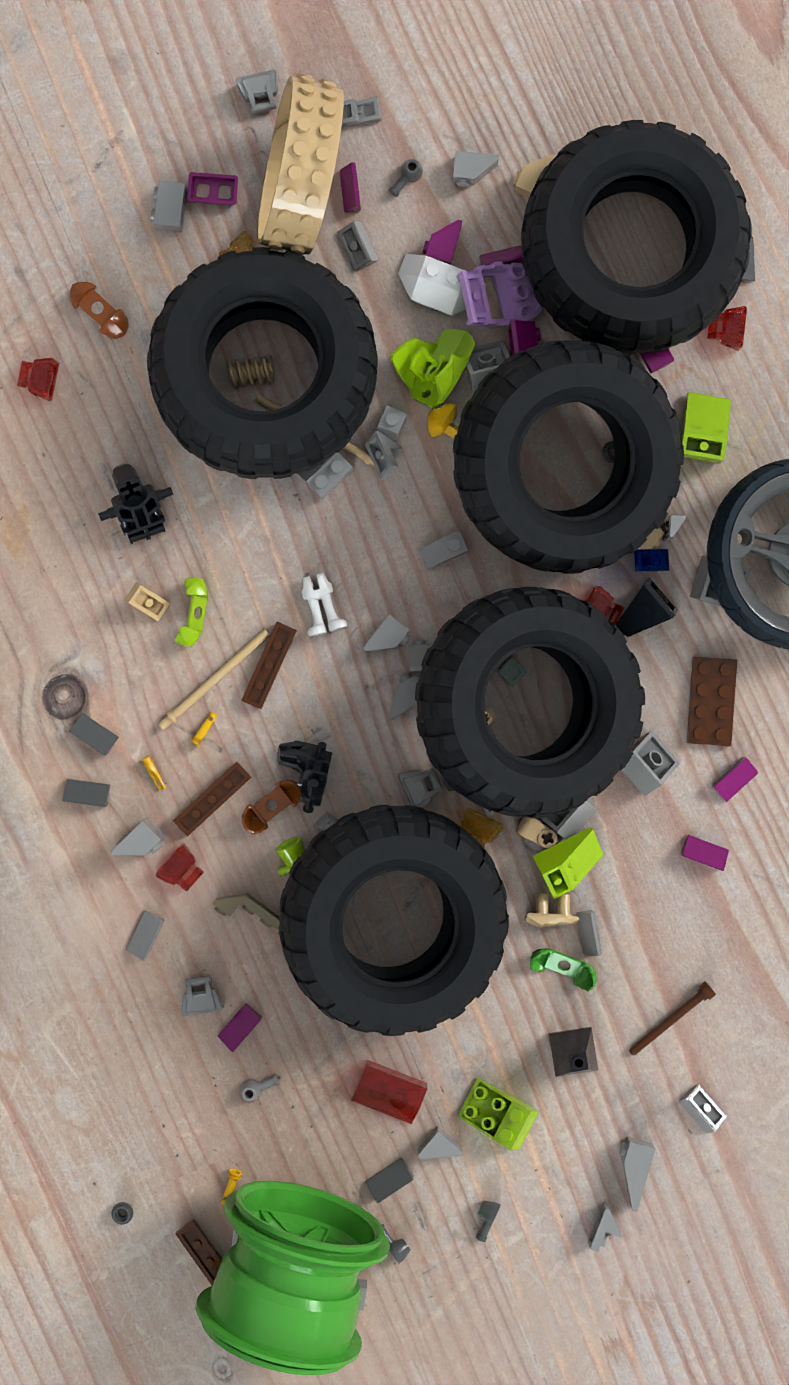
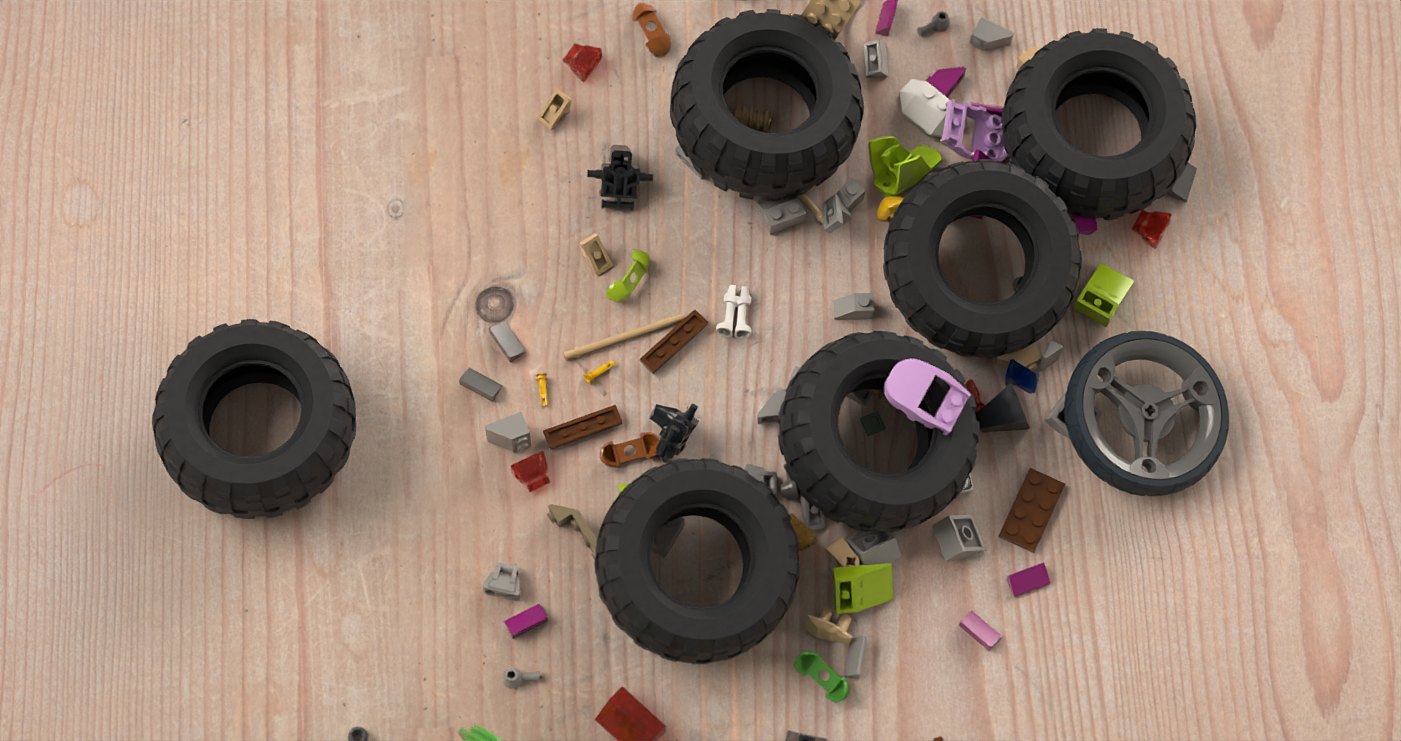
camera: 10 degrees right, 20 degrees down
(32, 450) = (554, 108): none -> tan slope
(145, 935) = (479, 515): light grey slope -> none
(388, 635) = (780, 355): light grey slope -> none
(550, 658) = (908, 385): none -> lavender slope

